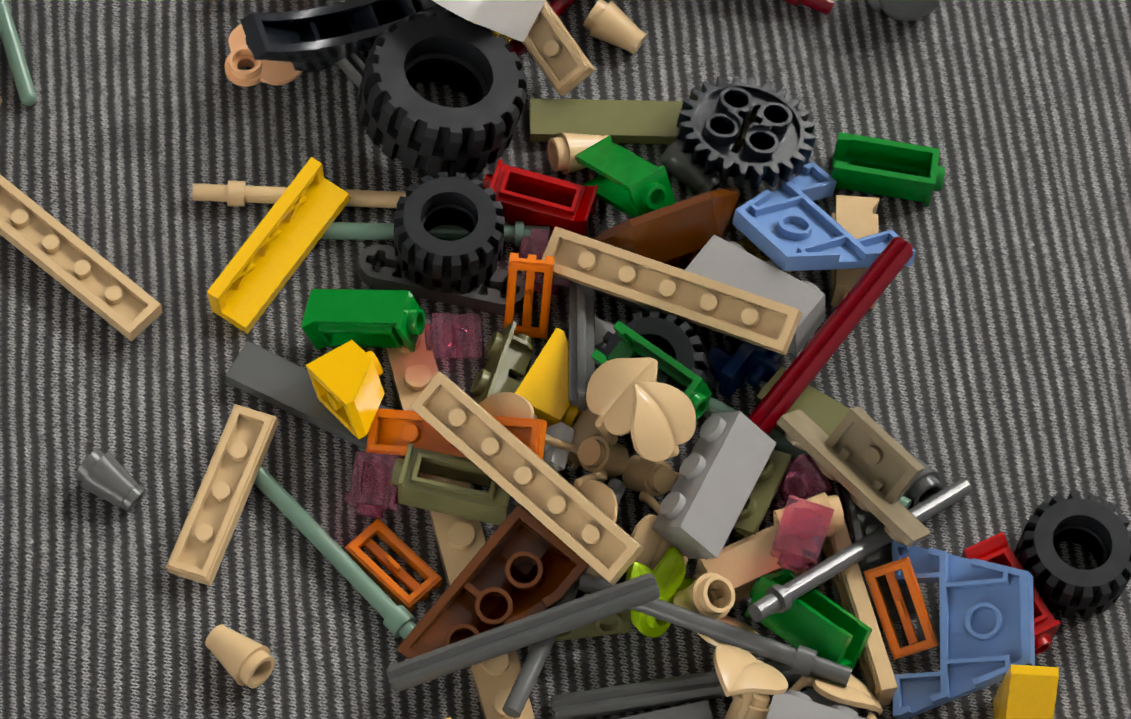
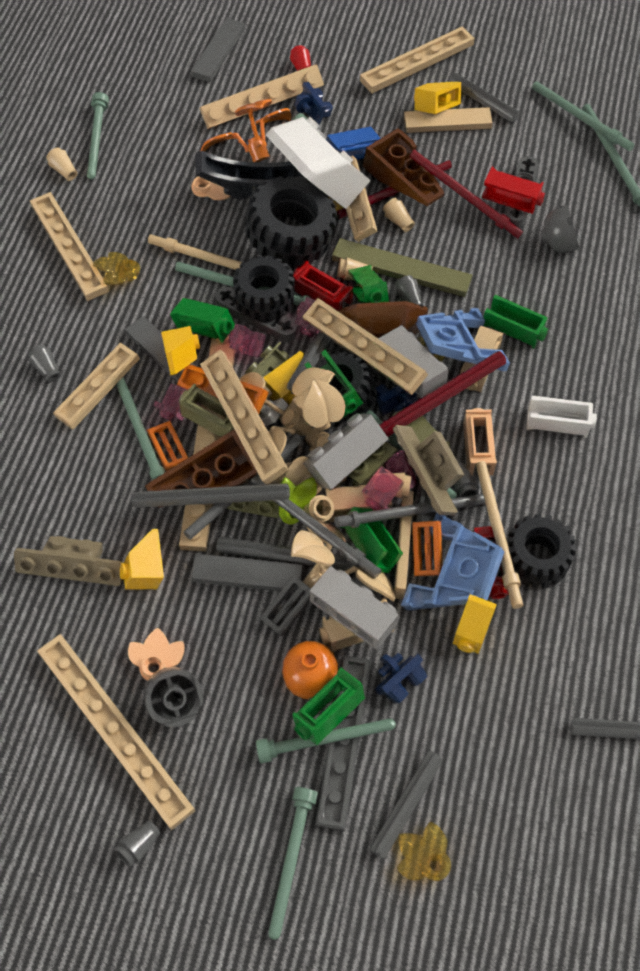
camera: 25 degrees right, 0 degrees up
(163, 263) = (117, 268): none -> clear yellow plate
(242, 657) = (70, 469): tan cone -> none
(277, 247) = (177, 274): yellow fence -> none
(531, 266) = (296, 313): orange tile -> none
(775, 142) = (444, 281): black gear -> none
(894, 403) = (473, 418): none -> light nougat window
(1051, 297) = (560, 415): none -> white window
(1055, 617) = (510, 578): none -> tan bar

